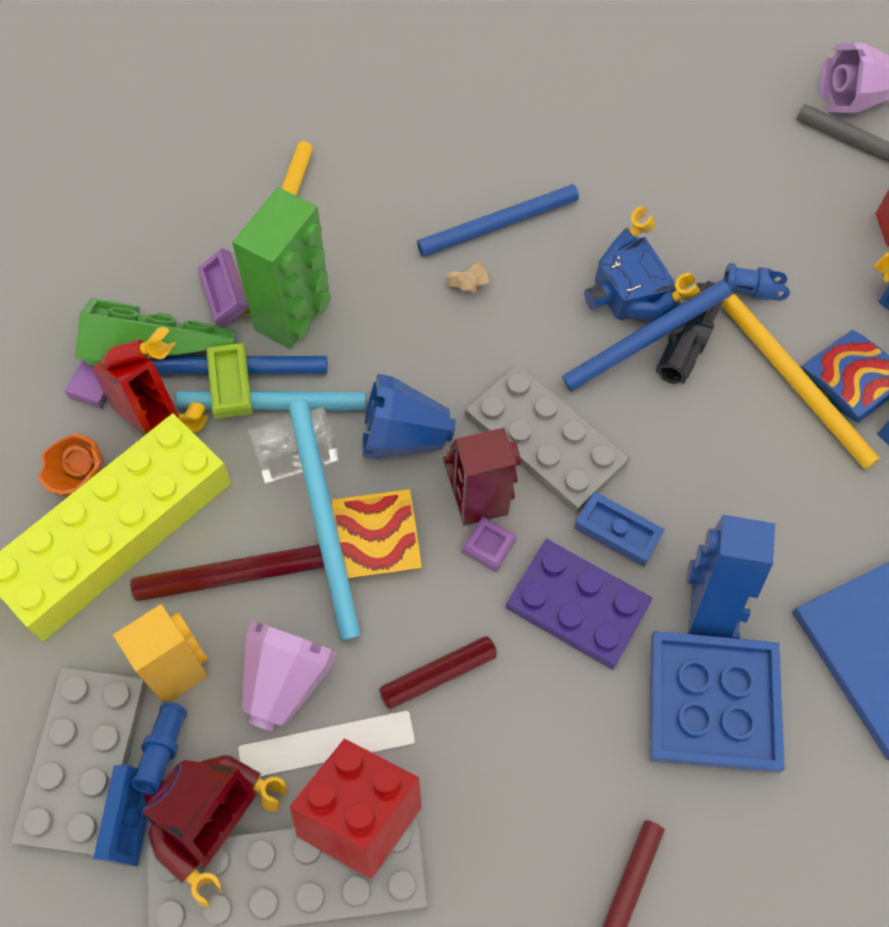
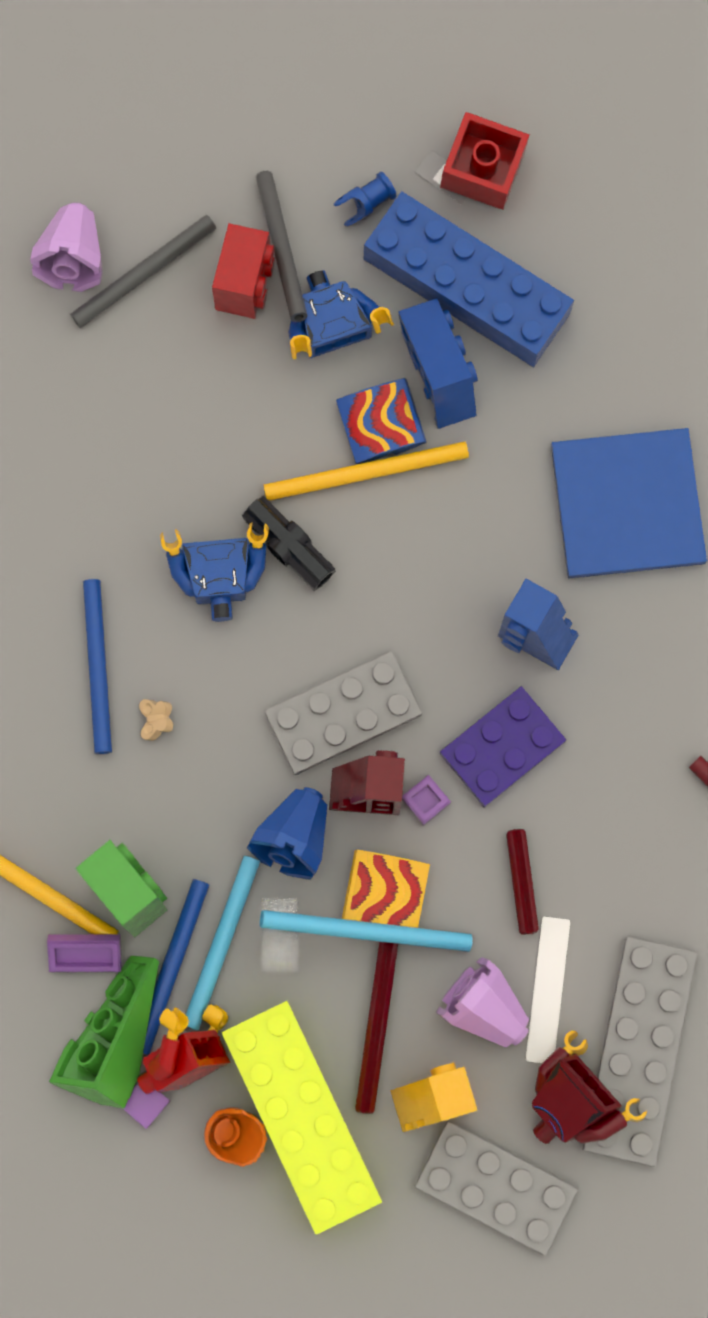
camera: 70 degrees left, 15 degrees up
(122, 820) = (565, 1165): blue plate -> none
(159, 748) = (512, 1120): blue pin -> none
(229, 381) = (194, 974): lime tile -> none
(356, 807) = (614, 979): red brick -> none
(619, 528) = (452, 687): blue plate -> none
(647, 335) = (285, 587): blue piece -> none
(716, 702) = (620, 674): blue plate -> none
(758, 282) = (257, 463): blue piece -> none

